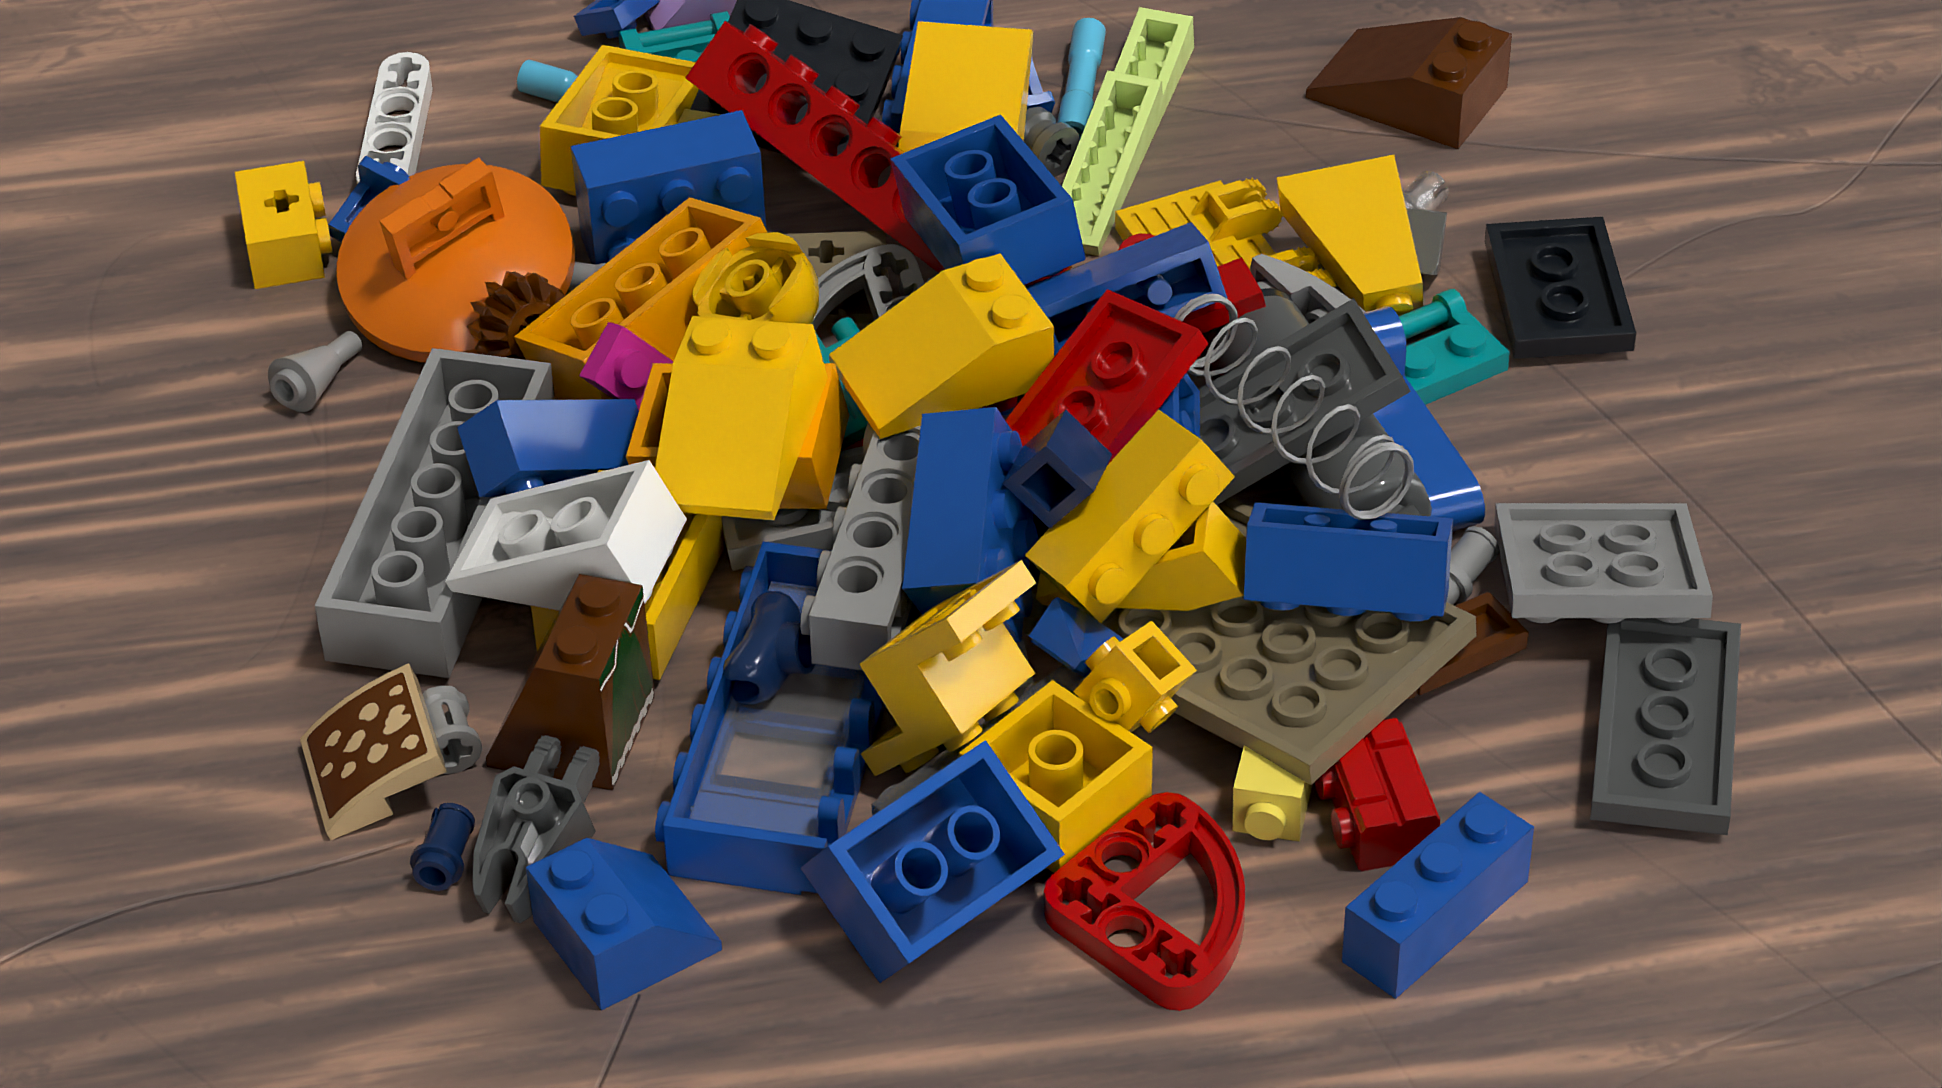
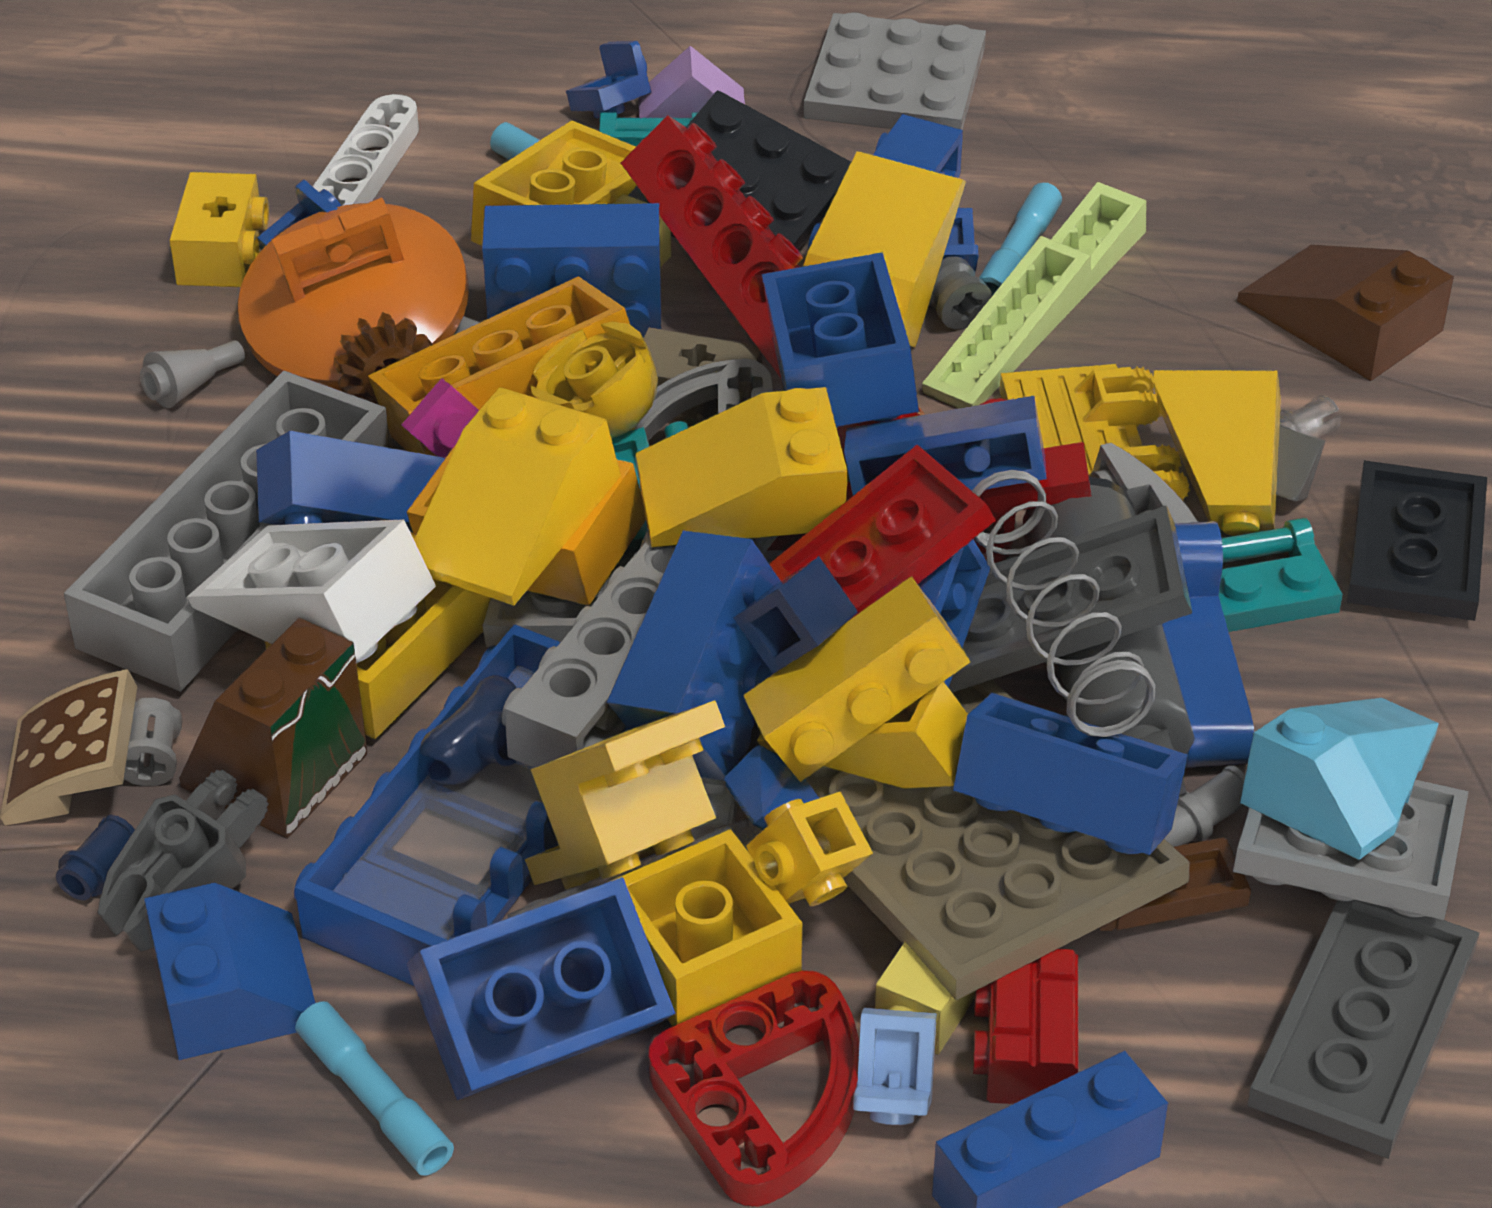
camera: 15 degrees right, 0 degrees up
(836, 1007) = (399, 1116): none -> medium azure piece
(1274, 854) = (895, 1065): none -> light blue bracket
(1573, 510) = (1339, 770): none -> medium azure wedge

